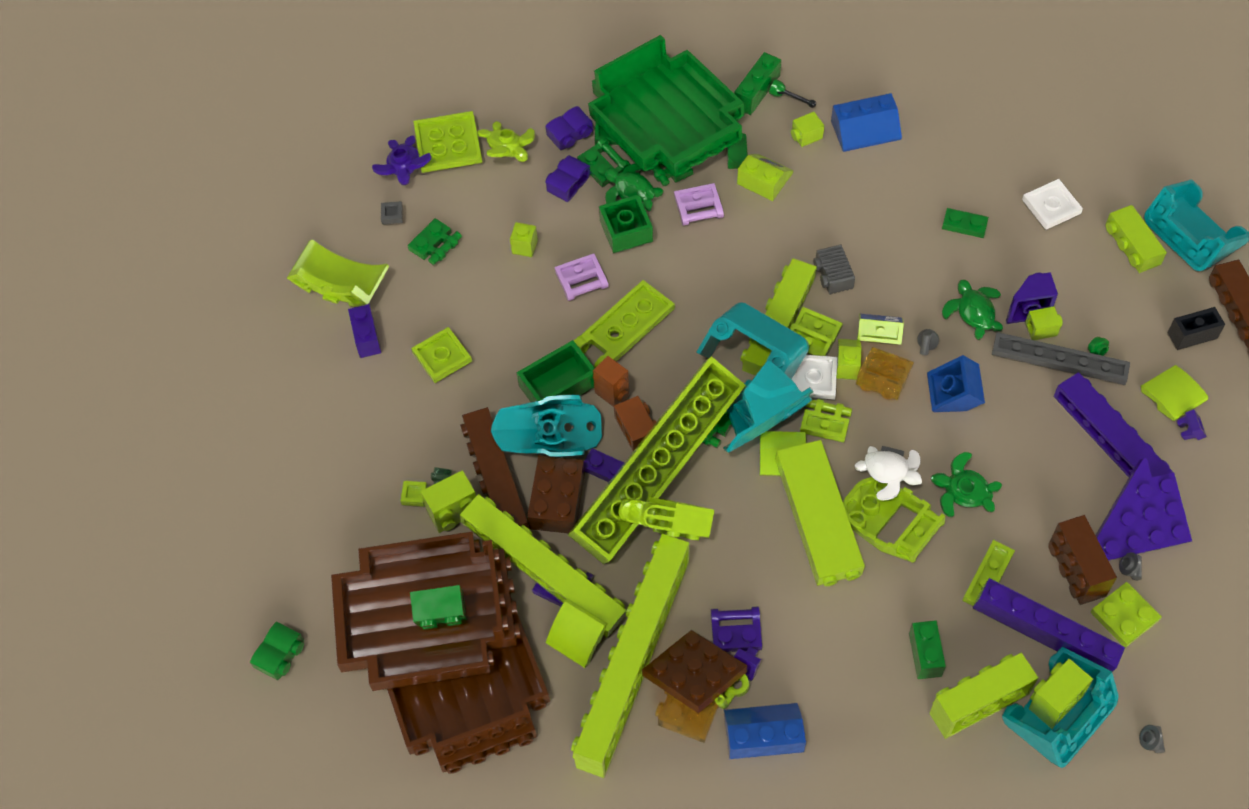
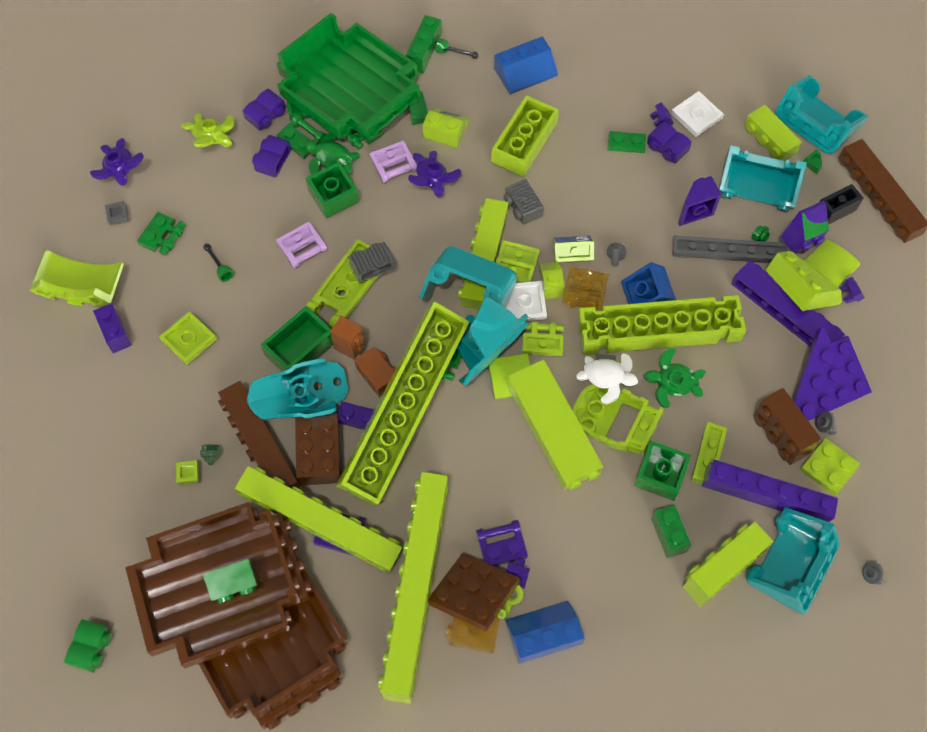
camera: 15 degrees left, 5 degrees up
(448, 500) = (221, 475): lime brick -> none
(449, 140) = (156, 137): lime plate -> none
(492, 292) = (224, 272): none -> green hinge
(523, 239) = (243, 219): lime brick -> none
(576, 633) = (360, 576): lime slope -> none
(652, 306) = (371, 262): none -> dark grey brick
(668, 517) = (424, 454): lime brick -> none
(739, 223) = (432, 173): none -> dark purple animal
(807, 129) = (475, 79): lime brick -> none
(849, 198) = (524, 136): none -> lime brick
(930, 582) = (662, 470): none -> green brick
(962, 426) = (661, 324): none -> lime brick
(975, 308) = (650, 217): green animal -> none
(1013, 200) = (663, 114): none -> dark purple tile
(1013, 230) = (669, 142): none -> dark purple brick
(1043, 323) = (711, 221): lime brick -> none
(1059, 693) = (791, 552): lime brick -> none
(1110, 286) = (761, 179): none -> teal windscreen
(1135, 407) = (803, 283): none -> lime wedge
(1152, 347) = (807, 228): none -> dark purple slope
(1178, 277) = (814, 161): none -> green tile

